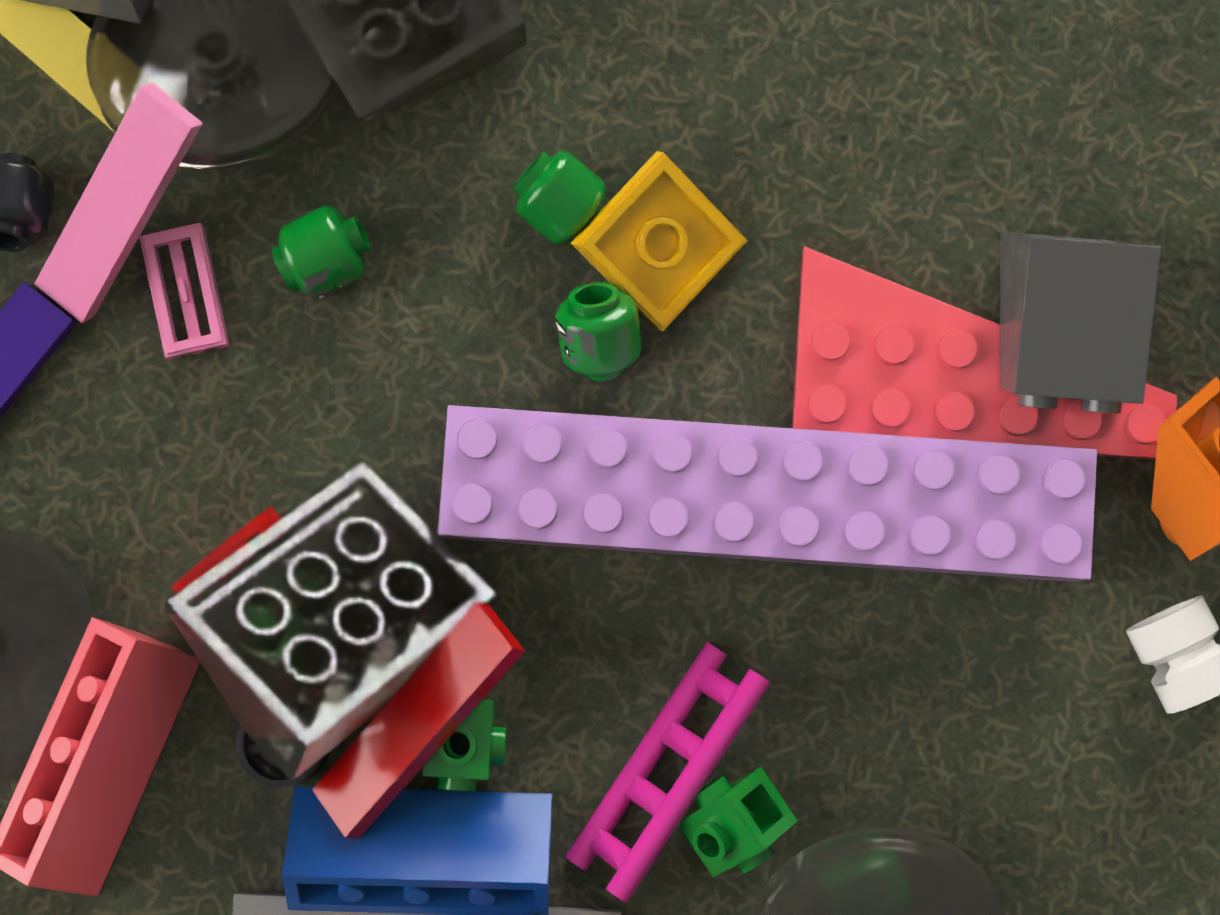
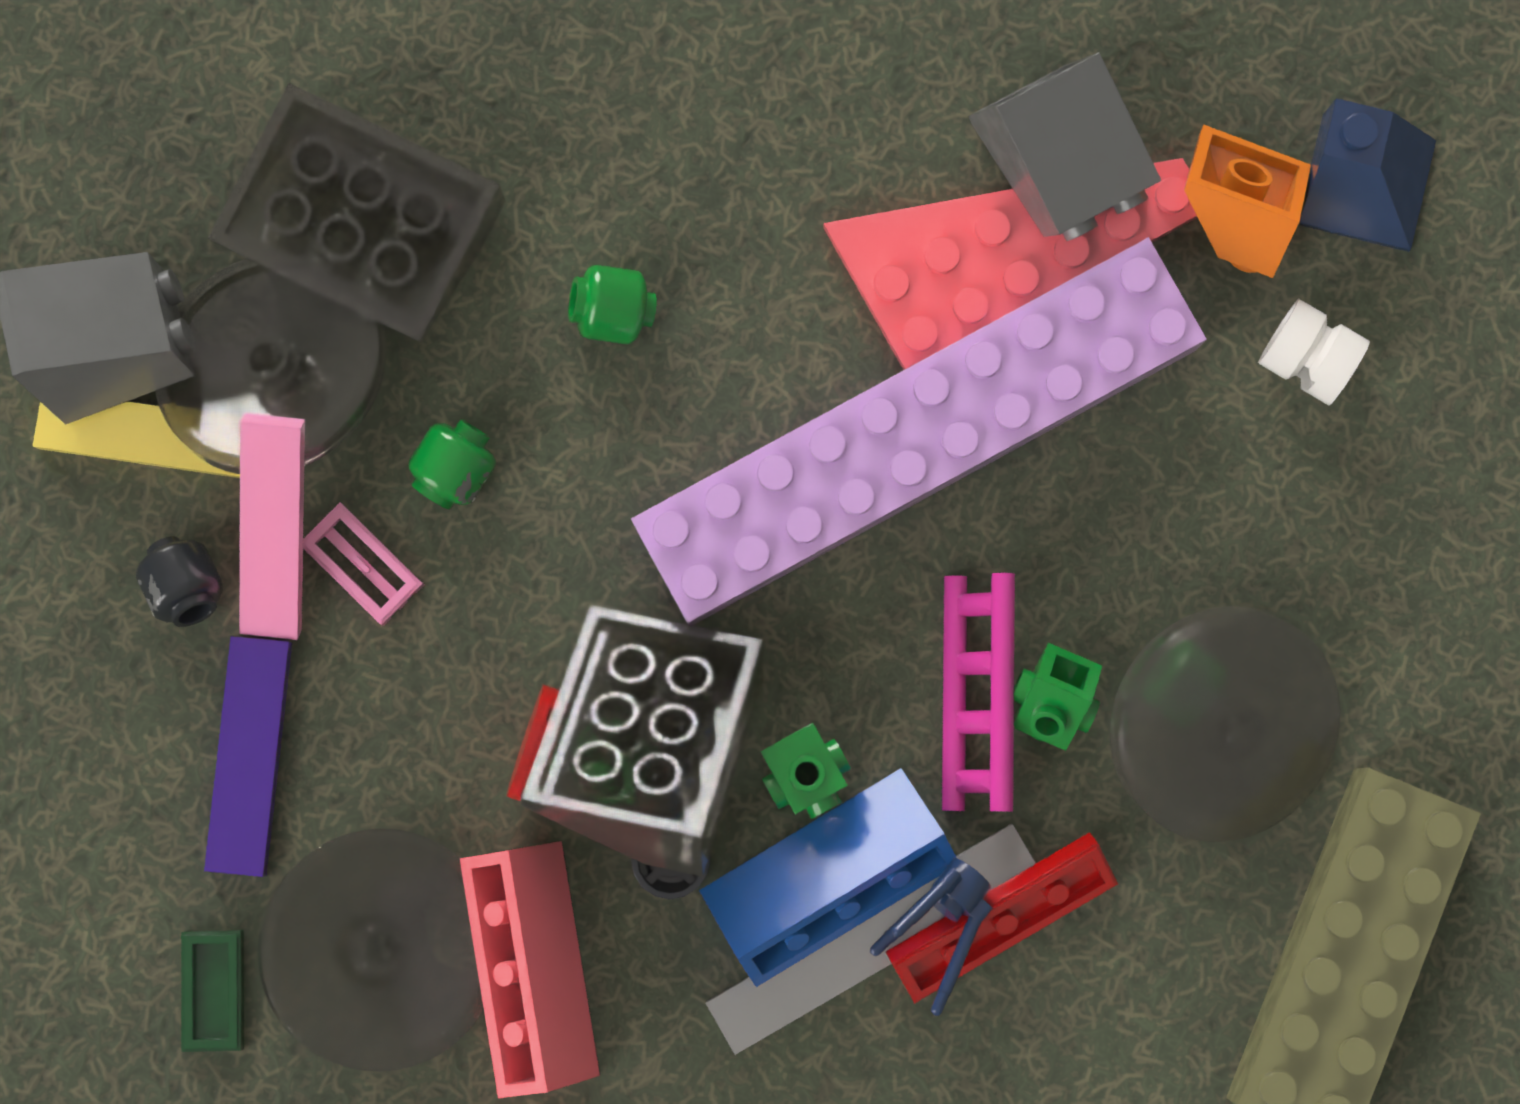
camera: 35 degrees left, 0 degrees up
(418, 720) = (765, 773): red tile -> none
(598, 331) = (708, 389): green head -> none
(659, 241) = (709, 290): yellow tile -> none

